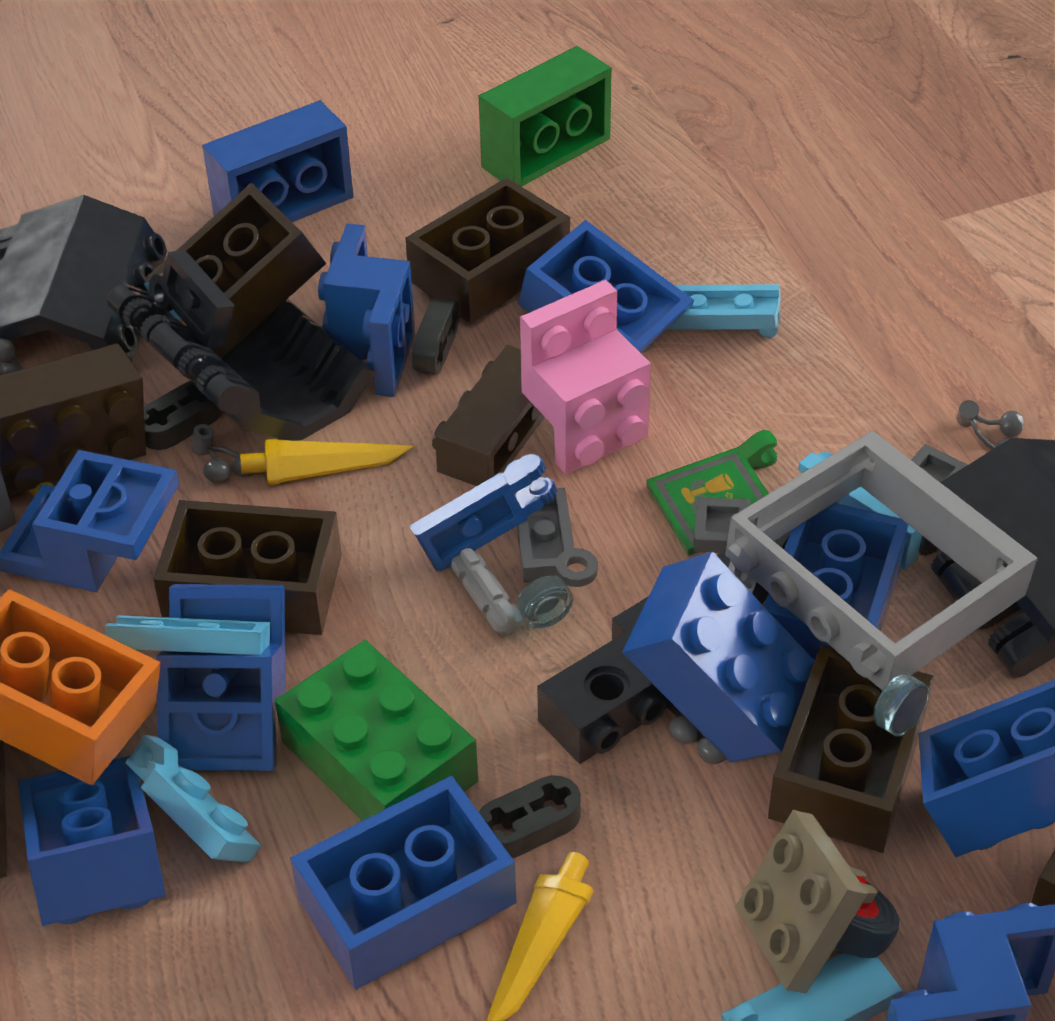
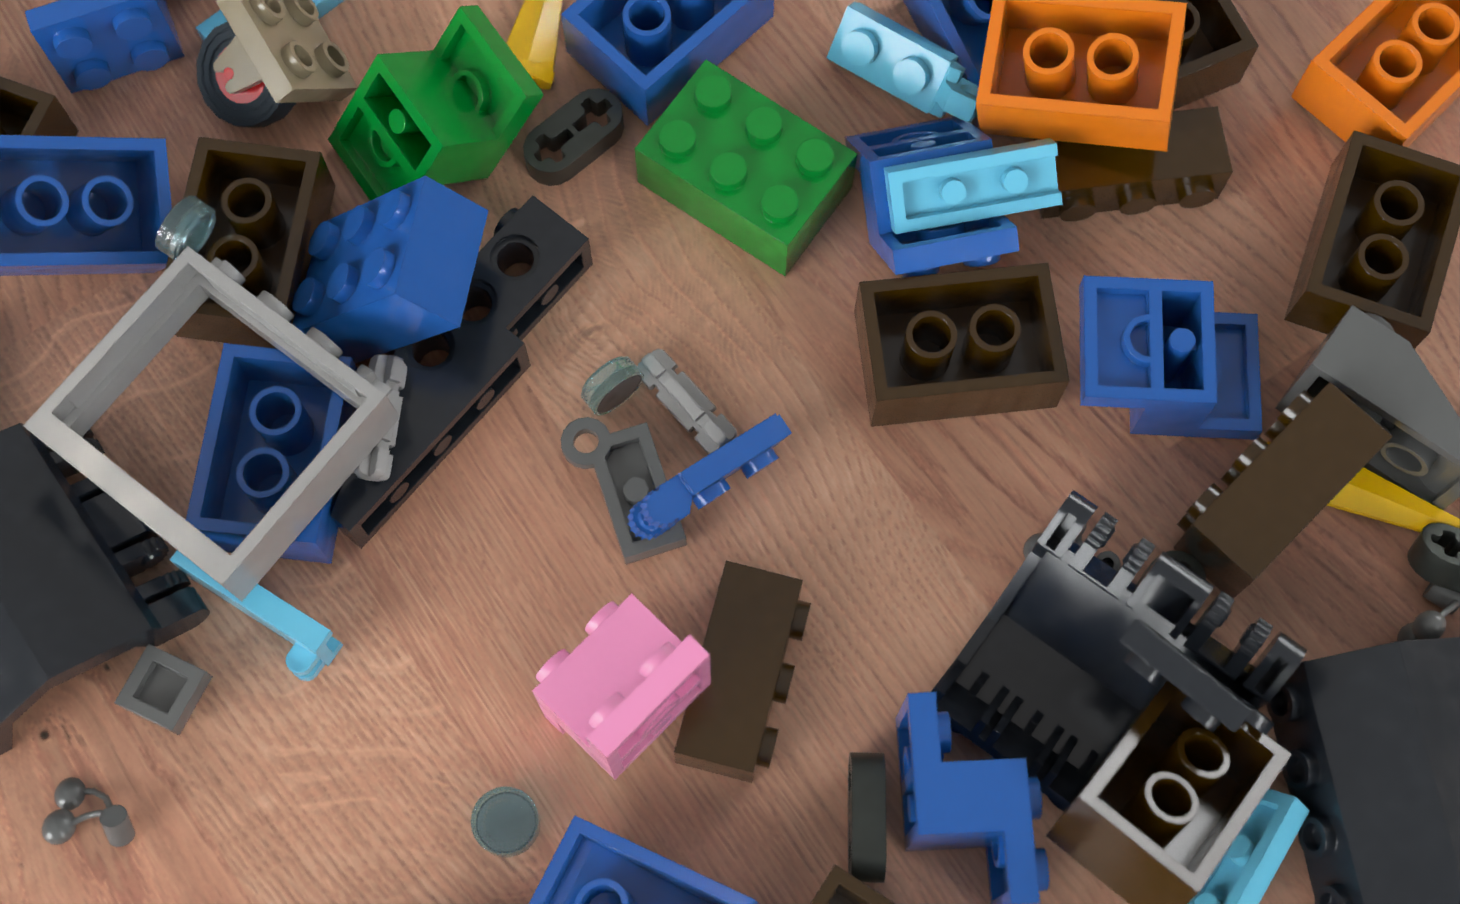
camera: 165 degrees right, 25 degrees up
(308, 459) = (967, 567): yellow bar -> none
(657, 821) = (436, 110): none -> green bracket
(687, 380) = (505, 821): none -> clear light blue tile
(713, 522) = (420, 531): dark grey plate -> none
(717, 476) = (435, 612): green flag -> none

